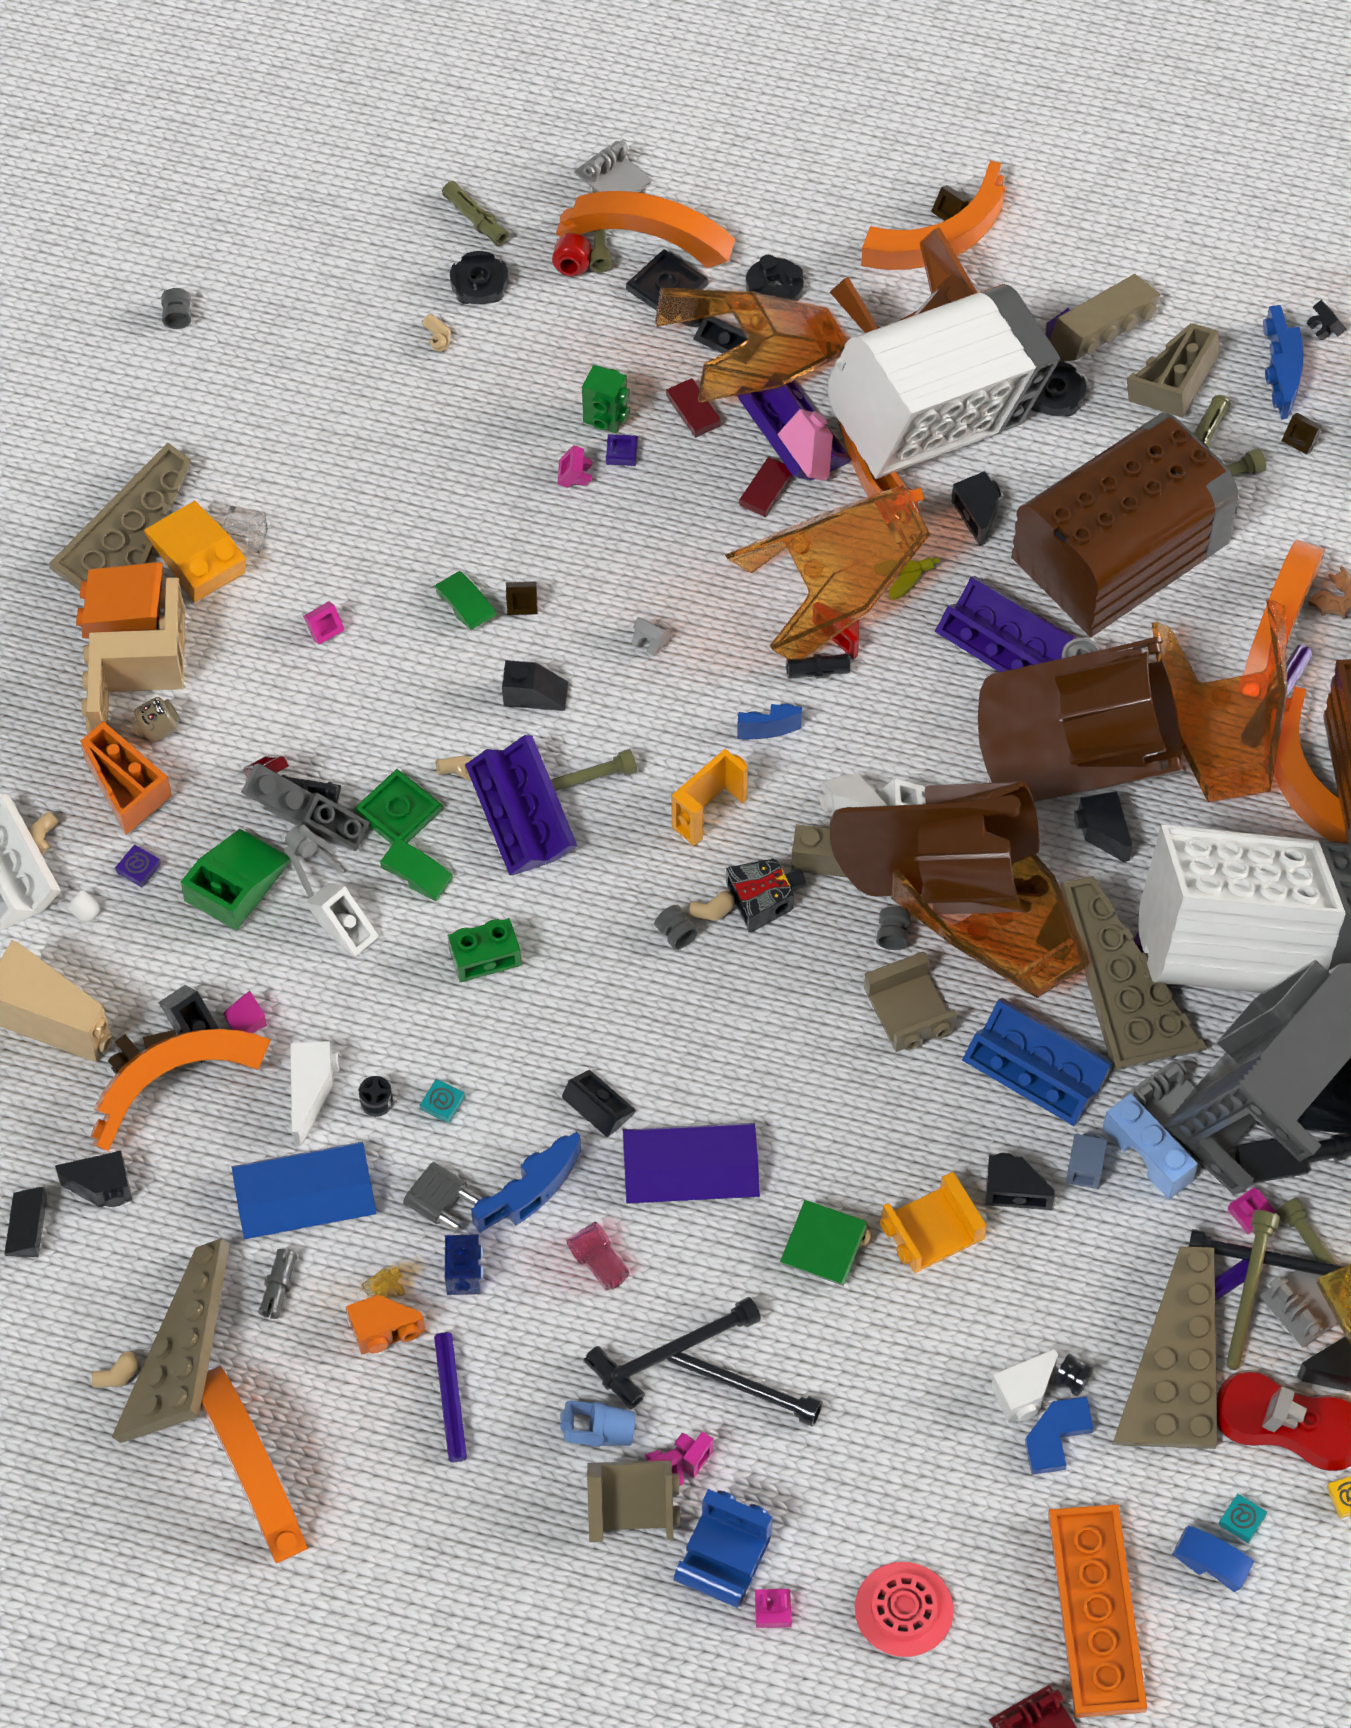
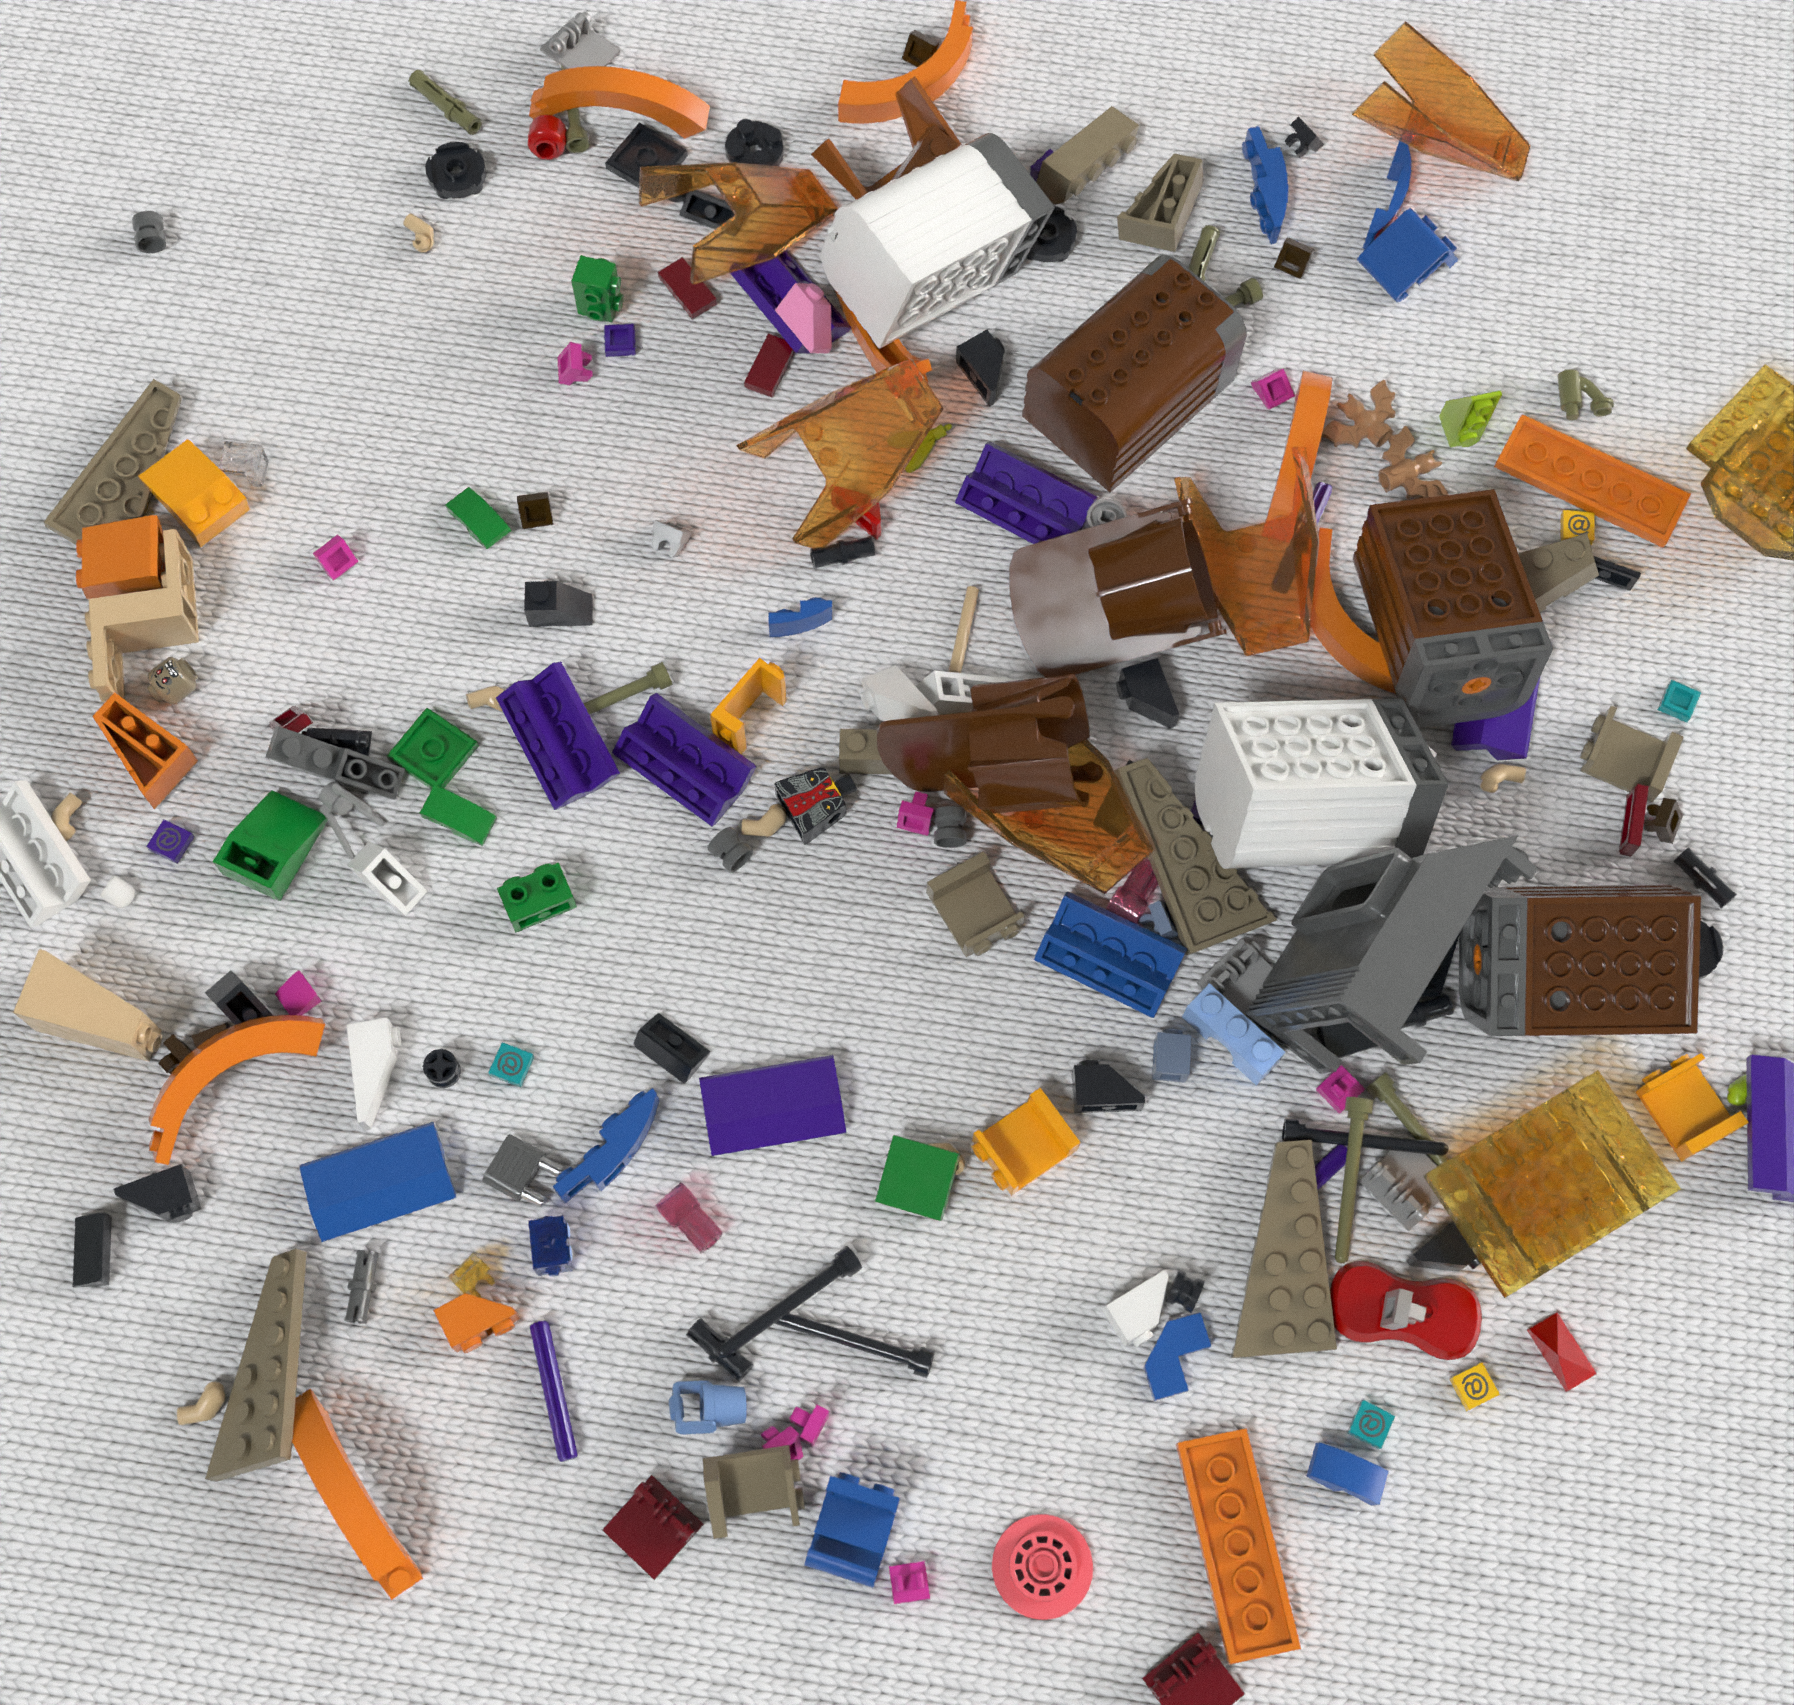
camera: 10 degrees left, 10 degrees up
(531, 1528) = (652, 1527): none -> dark red hinge
(641, 841) = (684, 760): none -> dark purple slope
(861, 914) = (915, 815): none -> dark pink tile
(930, 747) = (964, 629): none -> tan bar
(1069, 1008) = (1131, 898): none -> clear pink piece
(1092, 1034) = (1162, 920): none -> sand blue tile
(1266, 554) = (1273, 388): none -> dark pink slope

